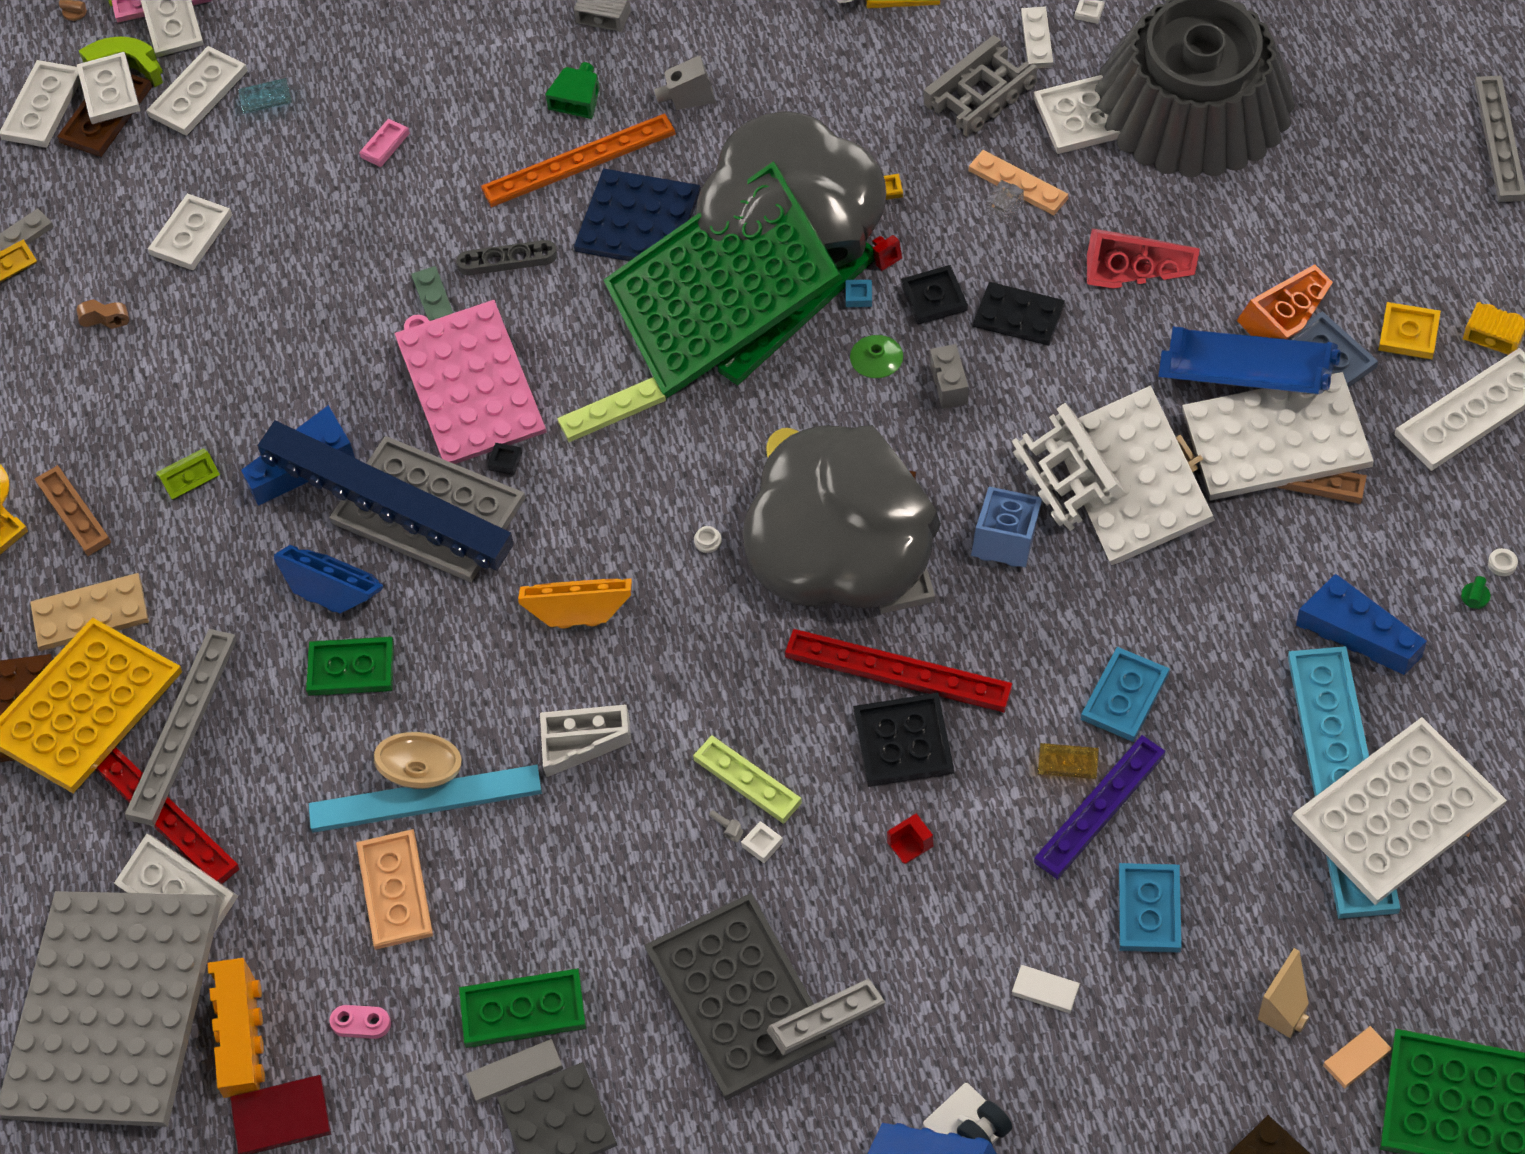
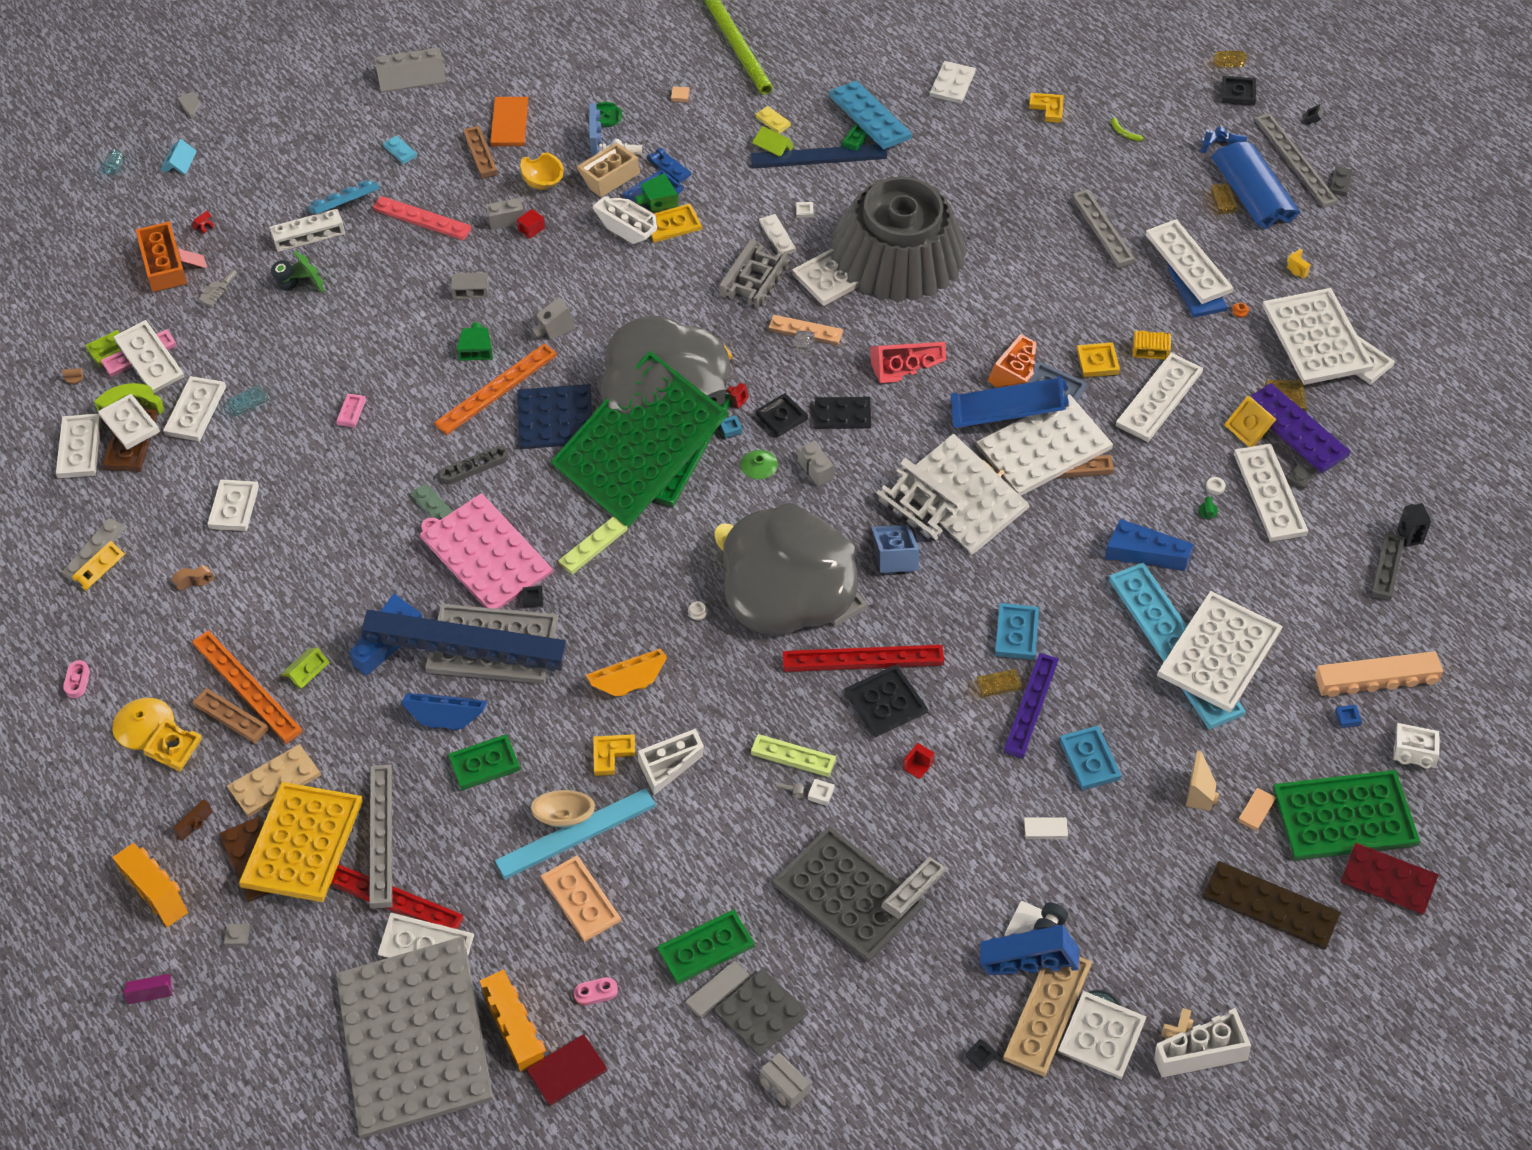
camera: 25 degrees left, 5 degrees down
(107, 479) = (247, 687): none -> orange plate
(513, 695) = (608, 748): none -> yellow plate

